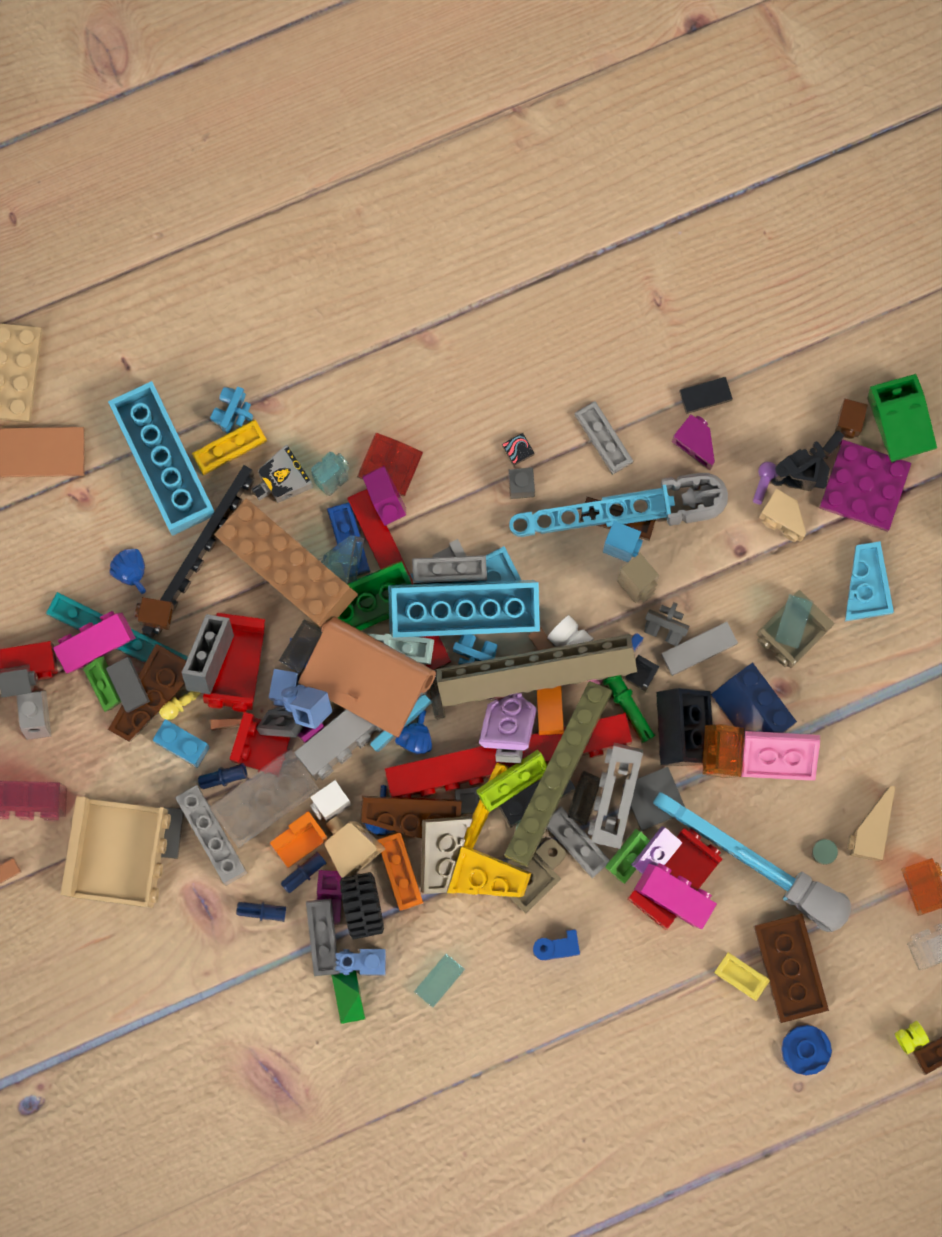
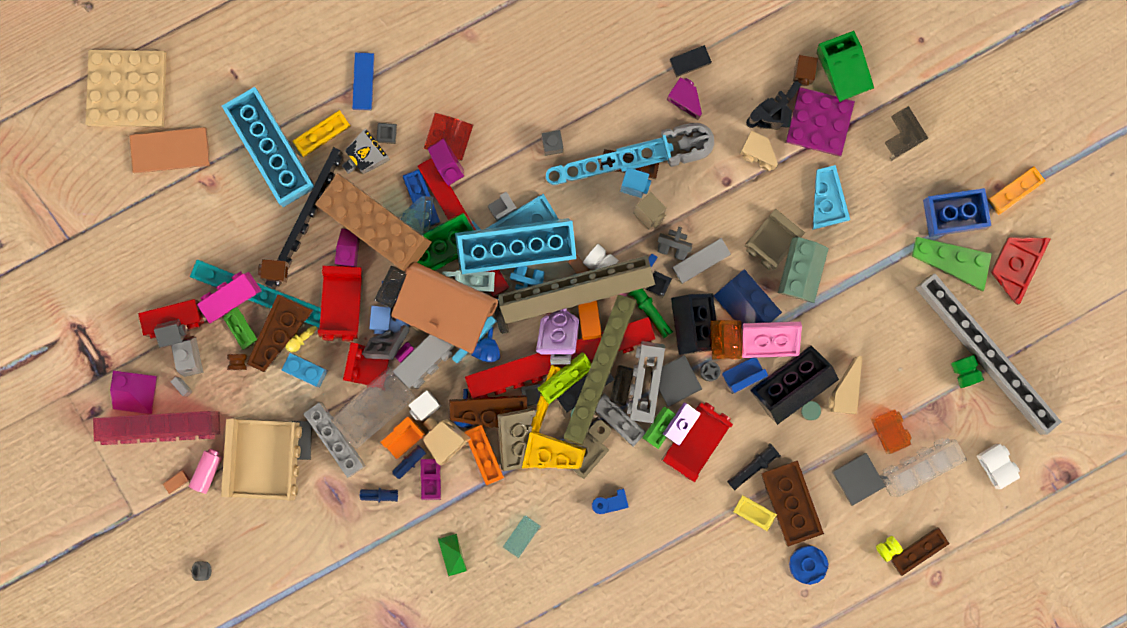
camera: 10 degrees left, 5 degrees up
(22, 751) = (181, 386): none -> light grey tile
(25, 988) = (201, 571): none -> dark grey tile
(43, 860) = (205, 471): none -> bright pink brick
(96, 726) = (236, 362): none -> reddish brown wheel
(127, 684) = (258, 328): dark grey tile -> none
(129, 568) = (251, 235): blue piece -> none
(207, 654) = (318, 299): dark grey brick -> none
(223, 776) = (340, 393): dark blue axle -> none
(224, 723) = (337, 351): nougat piece -> none
(235, 399) = (317, 111): dark azure hips -> none
(249, 594) = (347, 249): none -> magenta slope
(288, 386) = (363, 81): none -> blue tile
(307, 704) = (399, 333): medium blue brick -> none
(311, 452) = (386, 133): none -> dark grey tile
(322, 936) = (428, 511): flat silver tile -> none
(330, 472) = (402, 147): clear light blue brick -> none
(361, 905) = (456, 485): black tyre -> none
(369, 962) = (464, 528): medium blue brick -> none
(449, 569) = (501, 216): light grey tile -> none
(518, 449) = (547, 116): tile -> none
(603, 437) = (613, 101): light grey tile -> none
(676, 895) = (699, 455): dark pink brick -> none
(700, 786) = (713, 371): none -> dark grey wheel
(742, 798) = (744, 375): none -> blue panel
(754, 911) = (761, 461): none -> black pin
(766, 472) = (742, 118): medium lavender bar -> none
(794, 621) = (773, 233): clear light blue tile -> none
(806, 816) = (794, 384): none -> black slope
(813, 899) = (809, 451): piece -> none
(829, 670) = (803, 269): none -> sand green slope
(879, 945) = (858, 479): none -> dark grey tile

